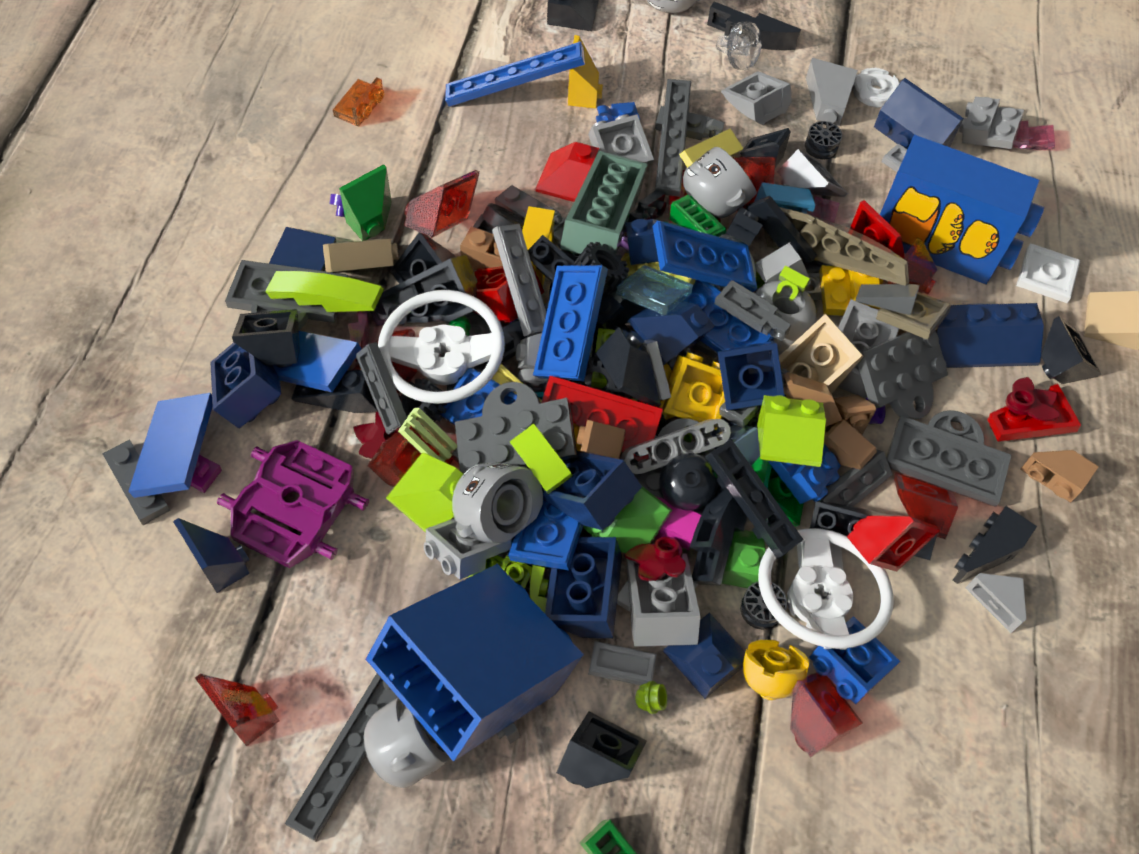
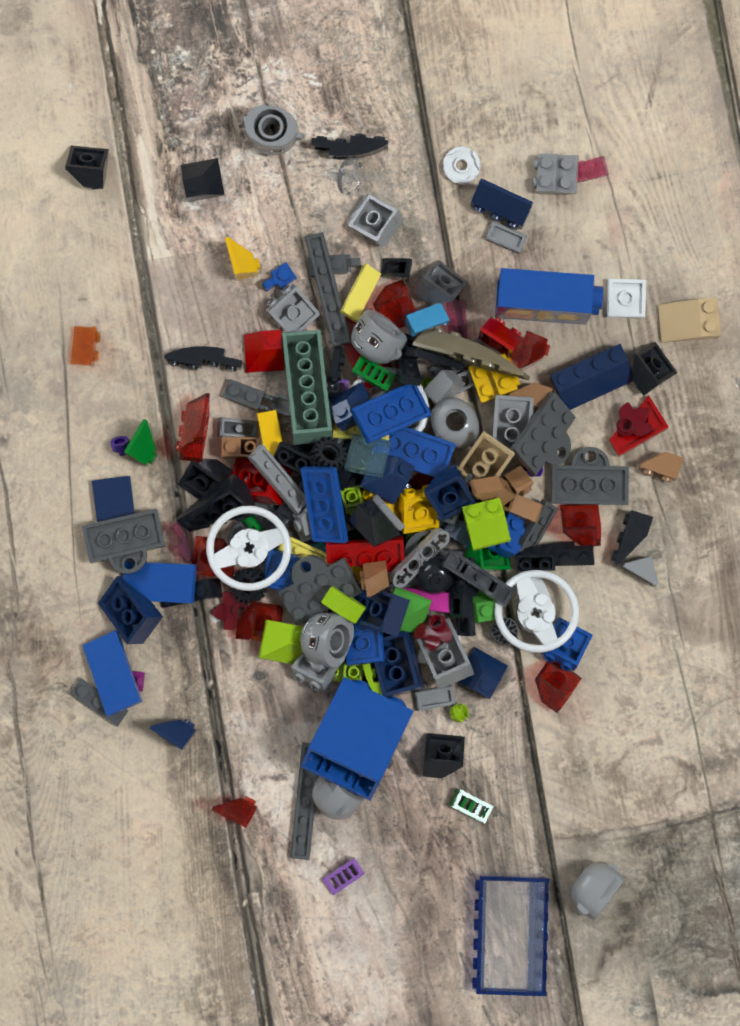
camera: 15 degrees left, 25 degrees up
(269, 336) = (135, 581): black slope -> none
(323, 289) = (153, 533): lime slope -> none
(323, 488) = (217, 681): magenta piece -> none
(359, 255) = (156, 489): tan slope -> none
(381, 387) = (224, 590): dark grey tile -> none
(442, 443) = (277, 611): yellowish green tile -> none
(488, 149) = (196, 356): none -> black slope
(500, 216) = (240, 425): black tyre -> none
(515, 74) = (193, 285): blue tile -> none
(752, 310) = (434, 439): dark grey hinge -> none
(773, 669) = (521, 670): yellow cylinder -> none
(792, 279) = (454, 407): lime tile -> none
(823, 142) = (437, 241): black wheel -> none
(829, 89) = (428, 189): light grey slope -> none
(889, 296) = (519, 390): dark grey slope -> none
(890, 539) = (564, 569): red slope -> none
(924, 318) = (539, 391): dark tan plate -> none

